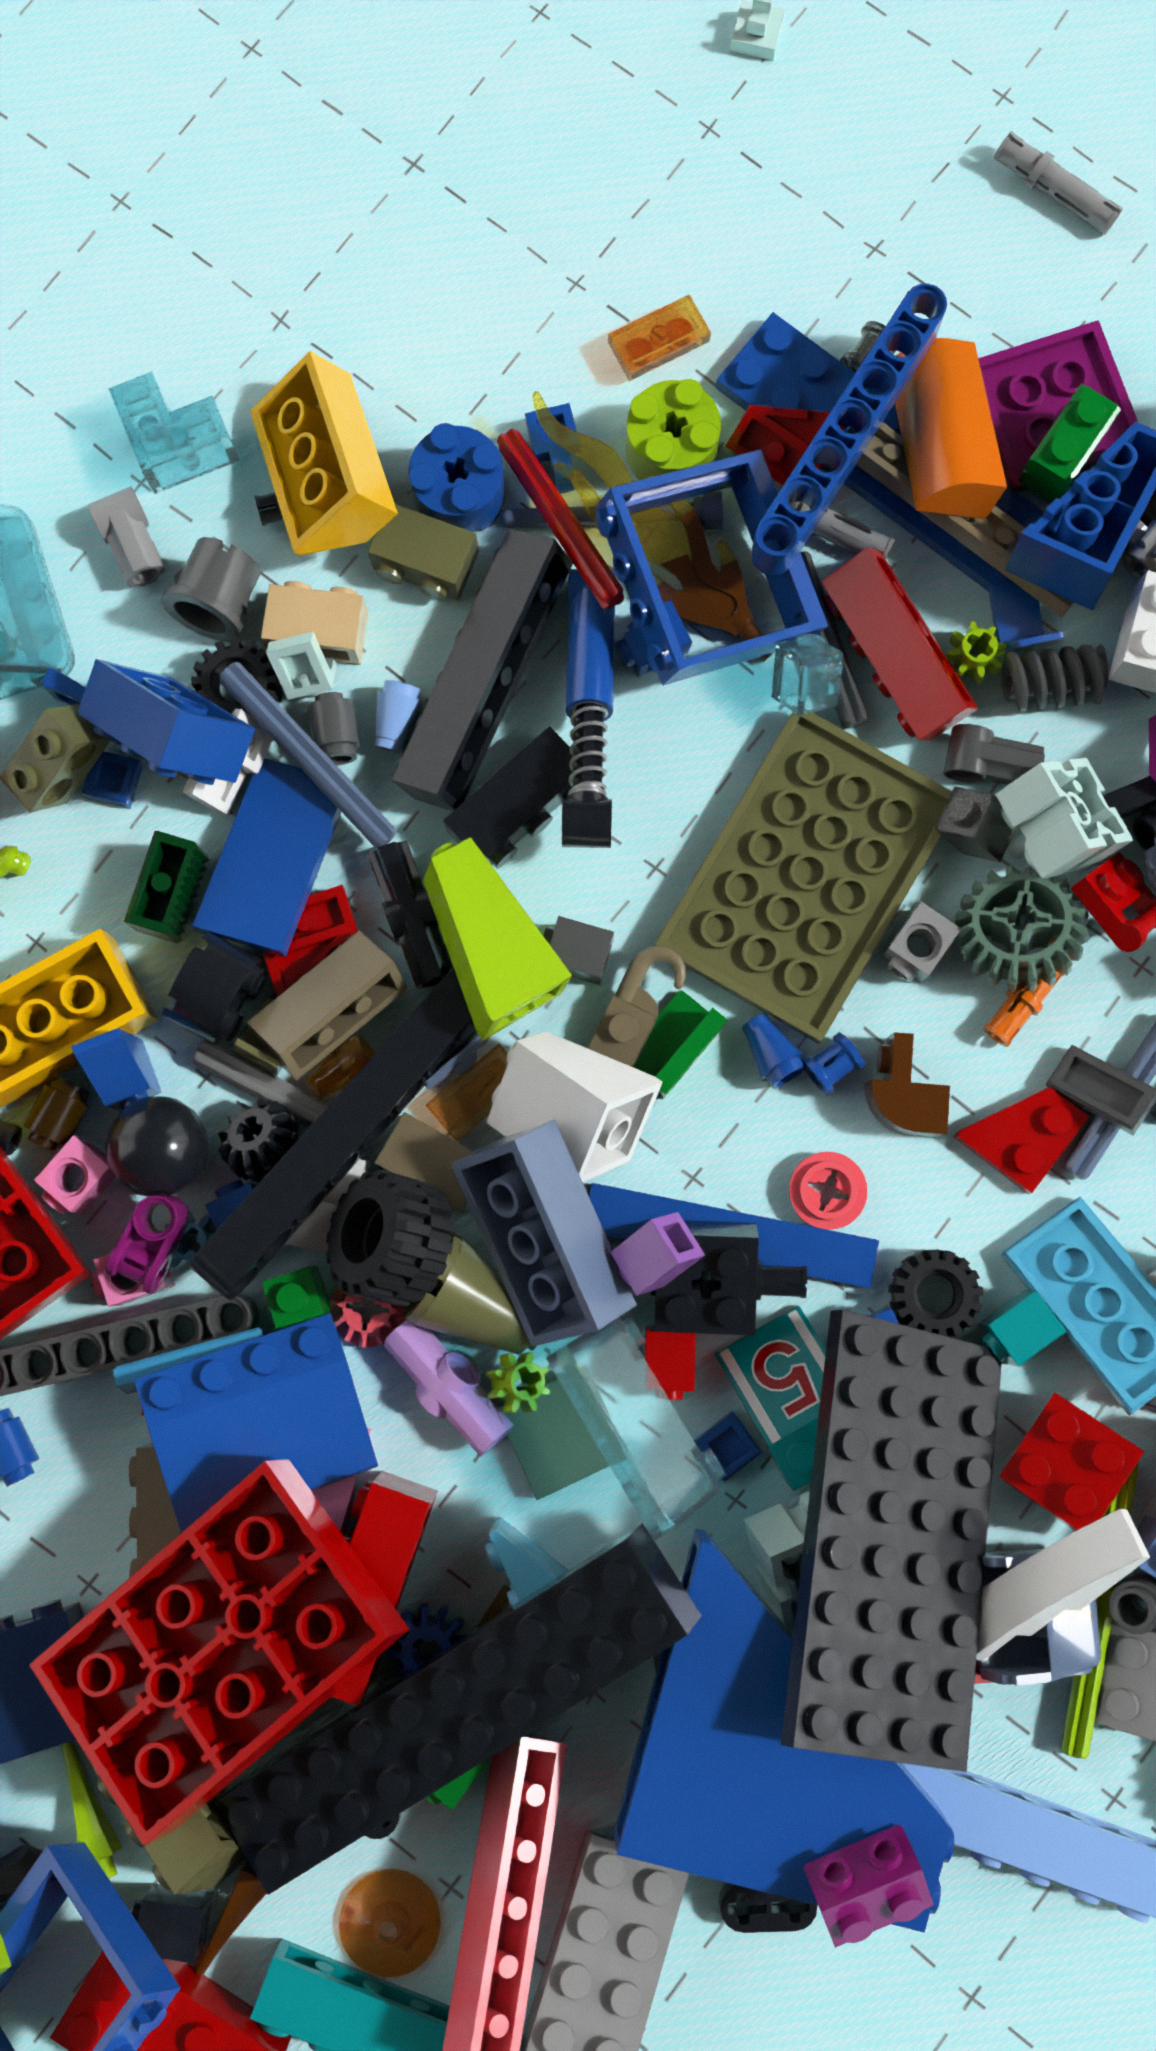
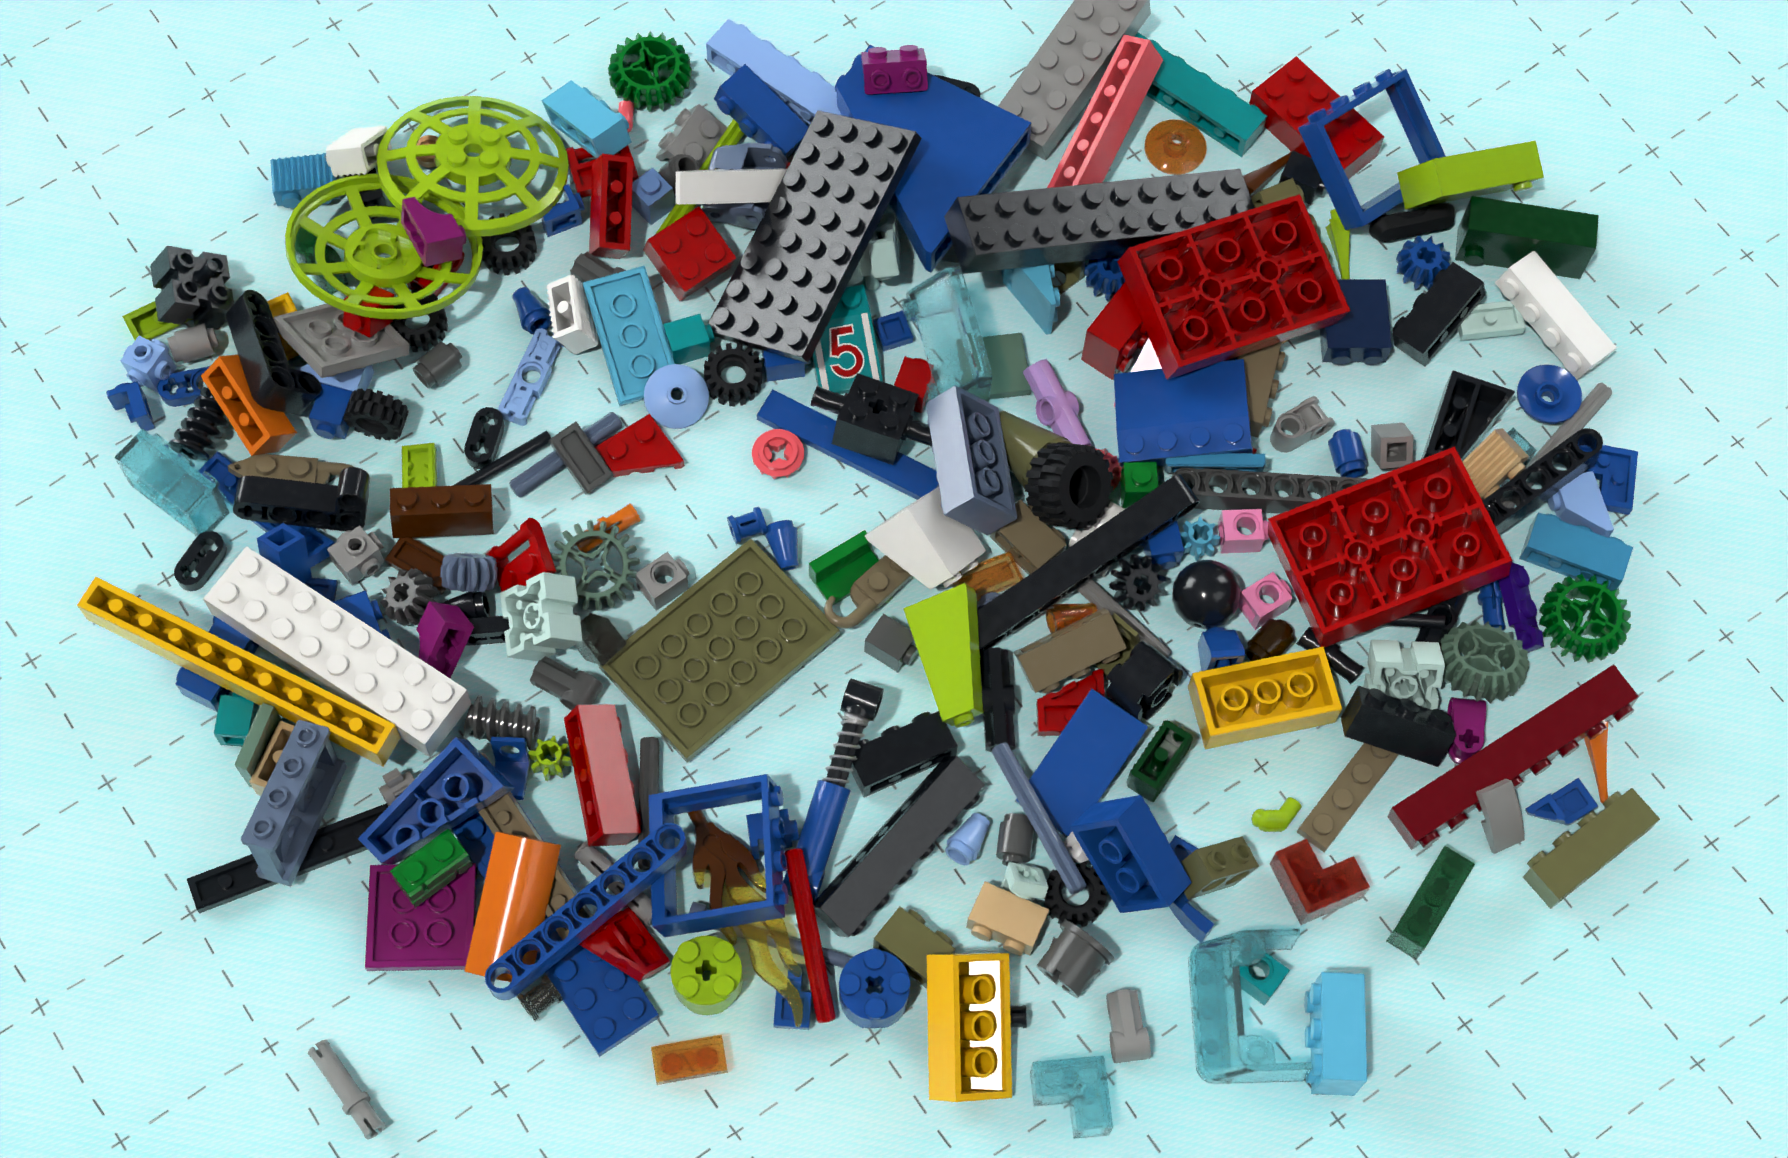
camera: 170 degrees left, 15 degrees down
(79, 1480) = (1304, 422): none -> light grey piece
(145, 1251) = (1227, 529): magenta piece -> none
(524, 1394) = (1012, 393): lime gear -> none
(657, 1253) = (904, 421): medium lavender brick -> none
(807, 674) = (674, 768): clear light blue brick -> none
(897, 1101) = (710, 487): reddish brown brick -> none
(1000, 1256) = (671, 412): none -> light blue dish
(1052, 1754) = (760, 111): none -> blue brick

